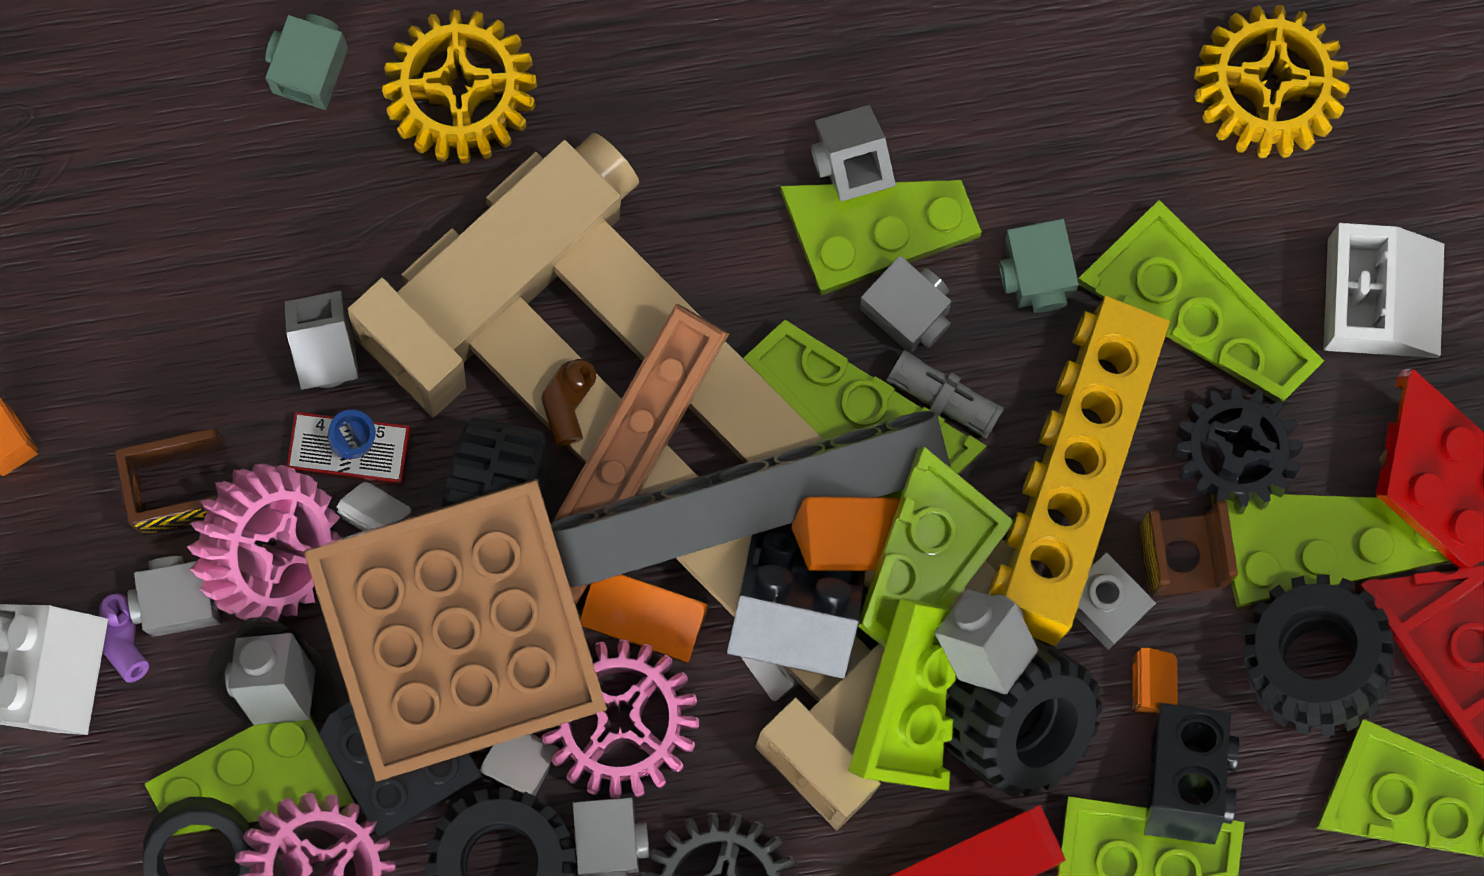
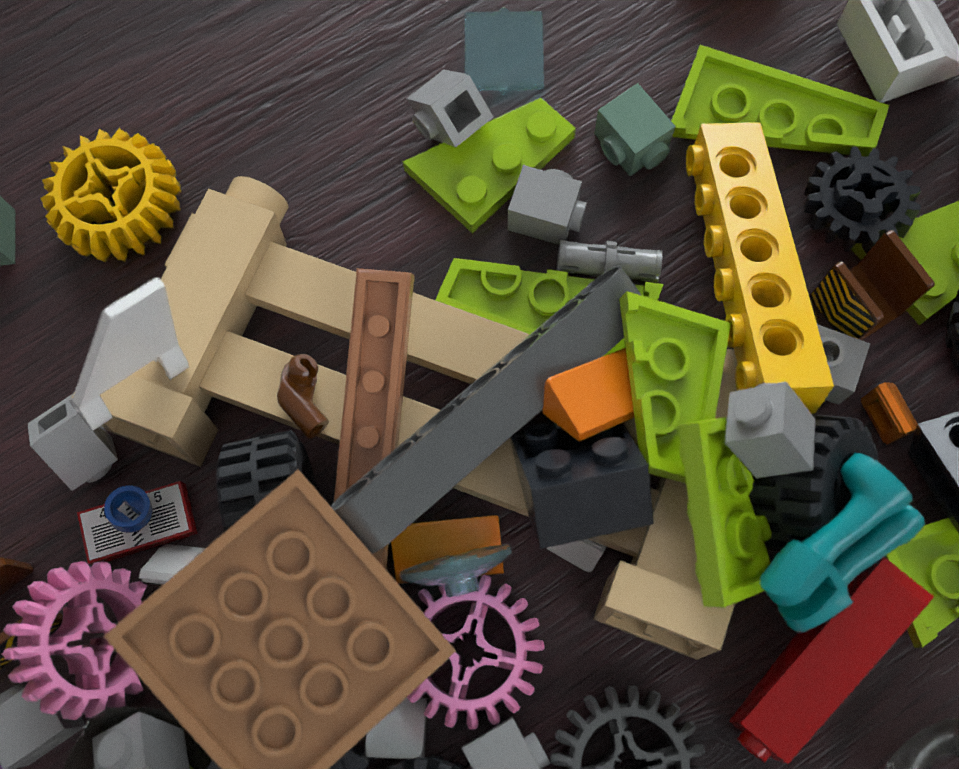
camera: 20 degrees left, 5 degrees down
(438, 288) = (126, 340): none -> white flag
(641, 639) = (459, 571): none -> clear light blue dish
(950, 102) = (504, 50): none -> clear light blue piece
(952, 783) = (813, 576): none -> teal piece

